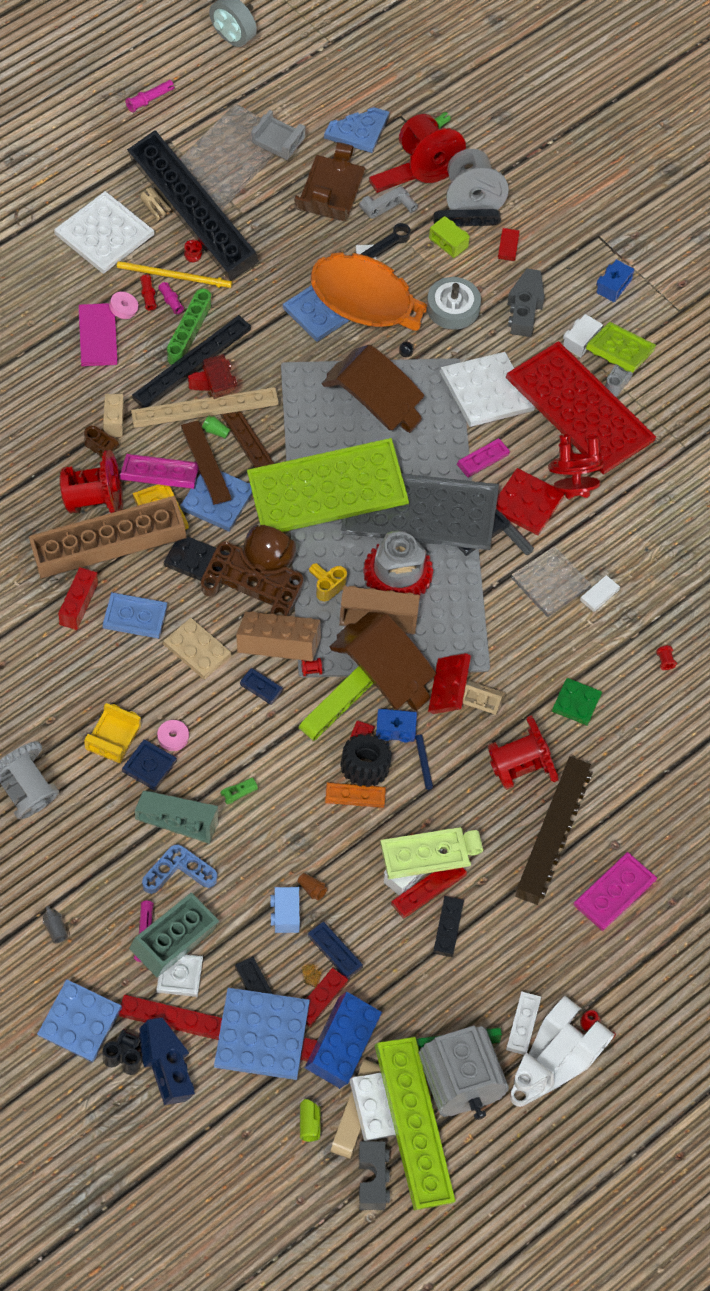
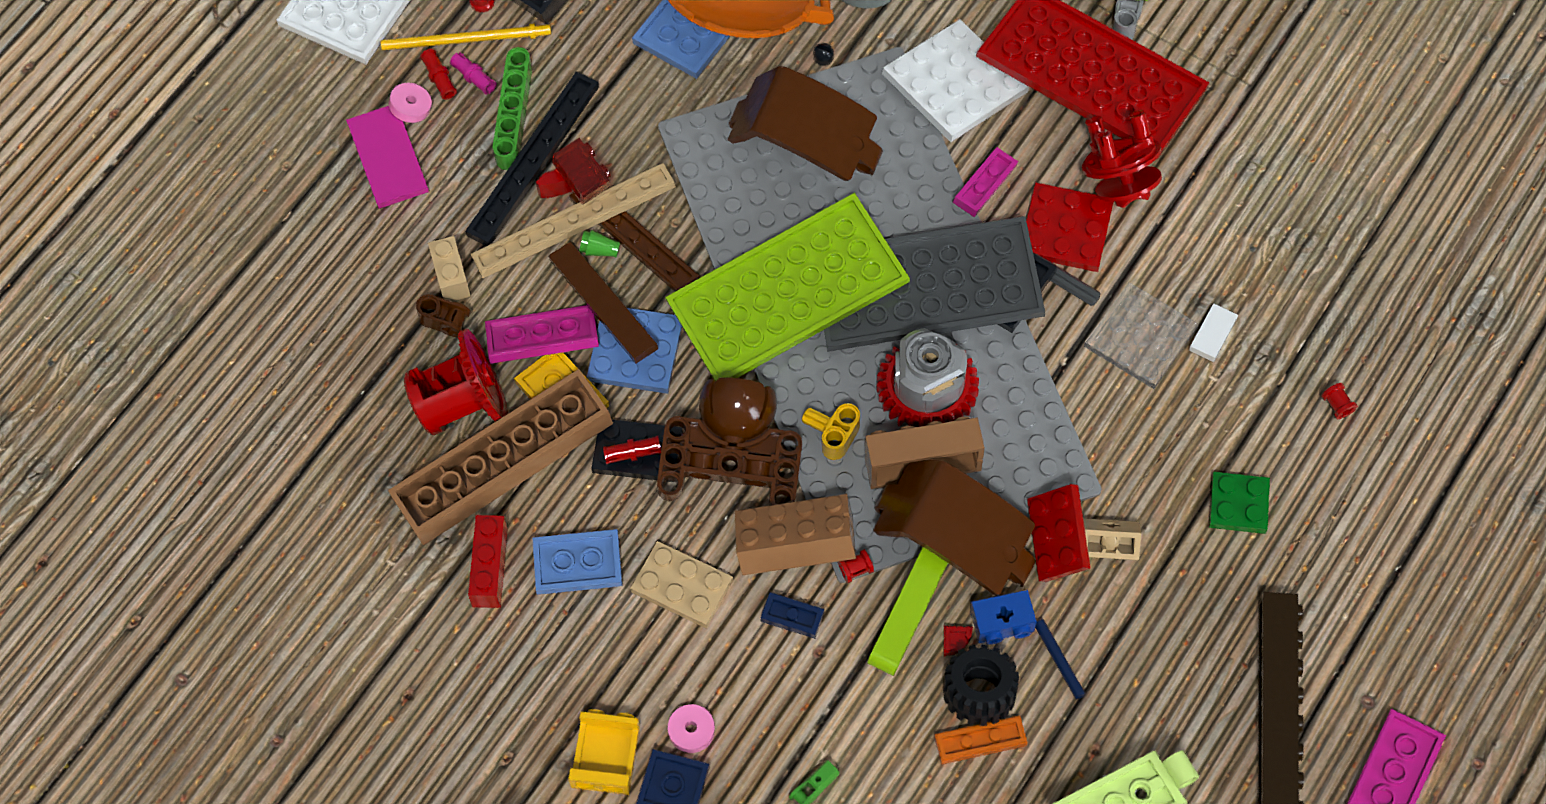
camera: 10 degrees left, 5 degrees up
(192, 556) = (632, 449): none -> red pin
(522, 757) = (1202, 614): red piece -> none

